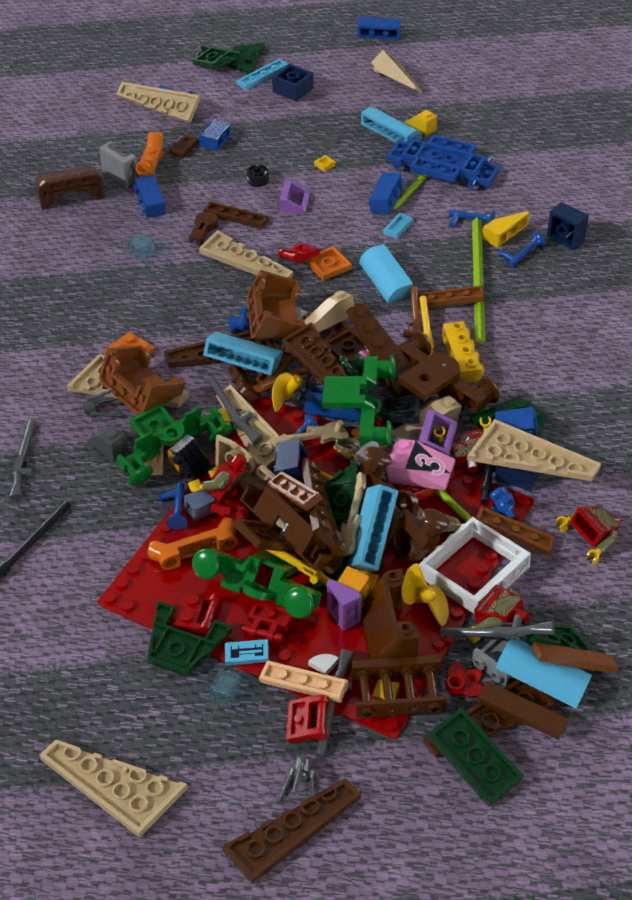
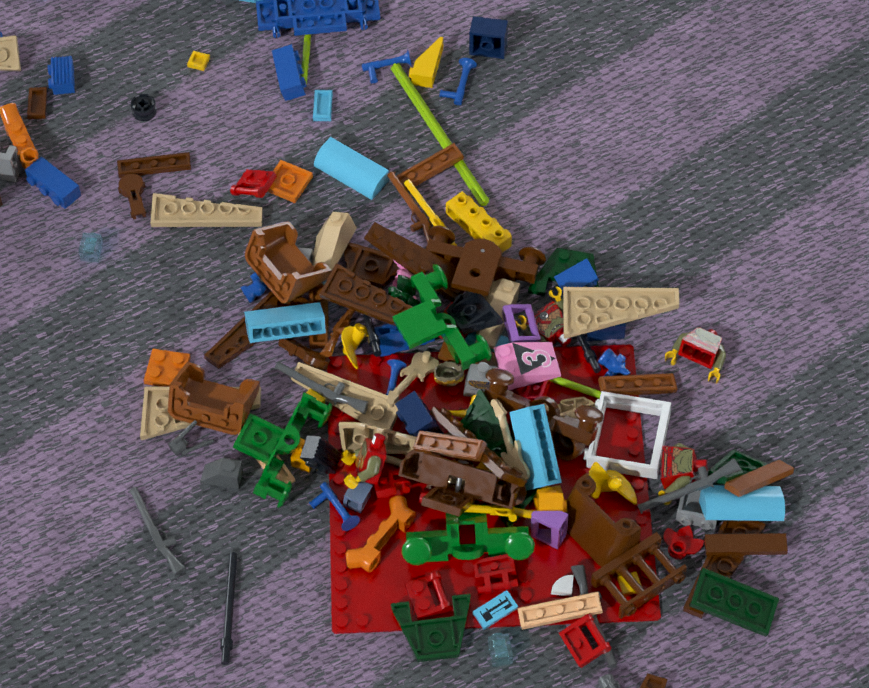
camera: 30 degrees left, 10 degrees up
(288, 206) = (196, 130): medium lavender tile -> none

